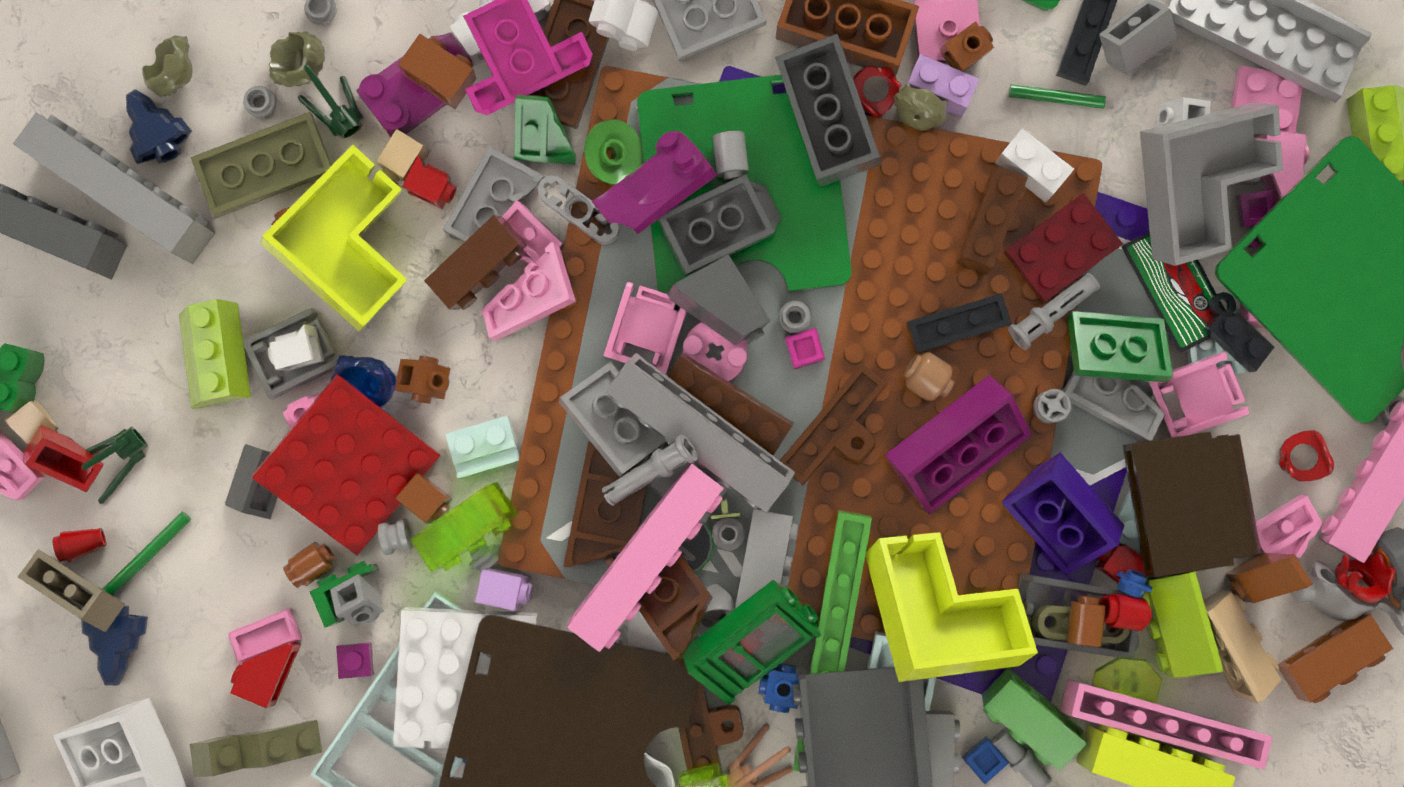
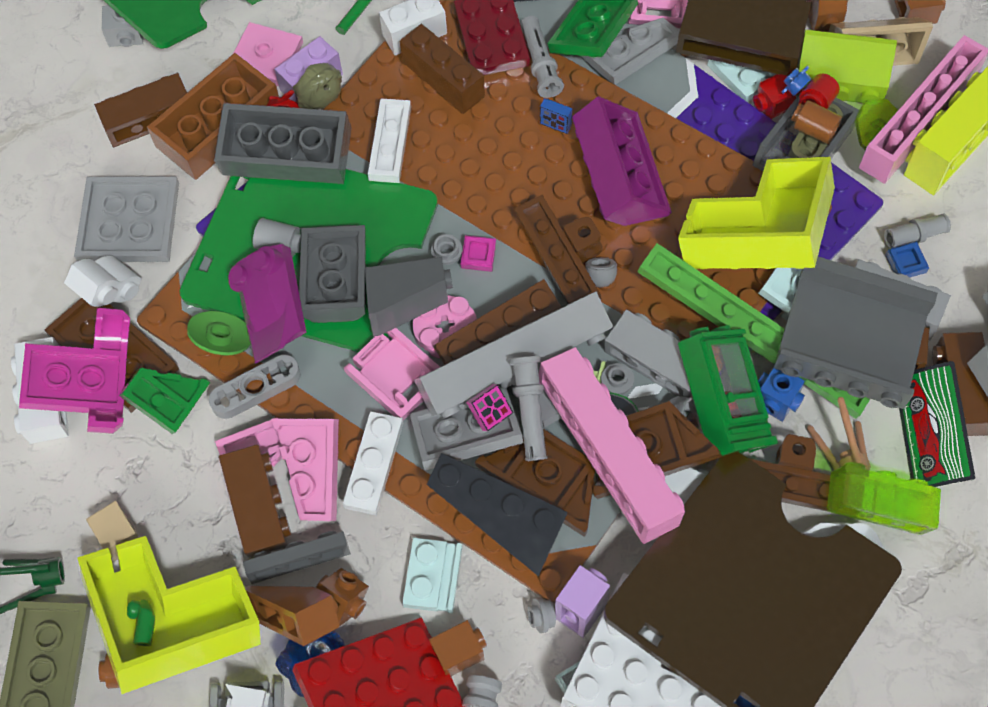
camera: 70 degrees left, 20 degrees down
(327, 230) = (145, 623): none -> green arm
(388, 350) = (295, 611): none -> dark orange slope
(398, 100) = (53, 492): magenta slope -> none
(429, 184) = (156, 516): red window -> none
(437, 70) = (54, 456): dark orange brick -> none
(447, 323) = (296, 556): none -> dark grey plate
(465, 528) = (506, 616): clear neon green brick -> none
(490, 192) = (195, 466): light grey wing -> none
(548, 485) = (506, 514): none -> black wing
(552, 351) = (373, 463): none -> white plate
(633, 435) = (490, 407): none -> tile
(842, 468) = (602, 271): none -> light grey piece
(887, 207) = (389, 140): none -> white plate
(928, 376) = (551, 162): medium nougat head -> none
(958, 323) = (516, 126): black plate -> none
(967, 47) = (288, 36): dark orange brick -> none
(986, 357) = (556, 116): none -> blue tile
(1033, 720) = (885, 204): bright green brick -> none
(1056, 401) = (624, 80): light grey wheel -> none
(1064, 514) = (716, 112): dark purple slope -> none

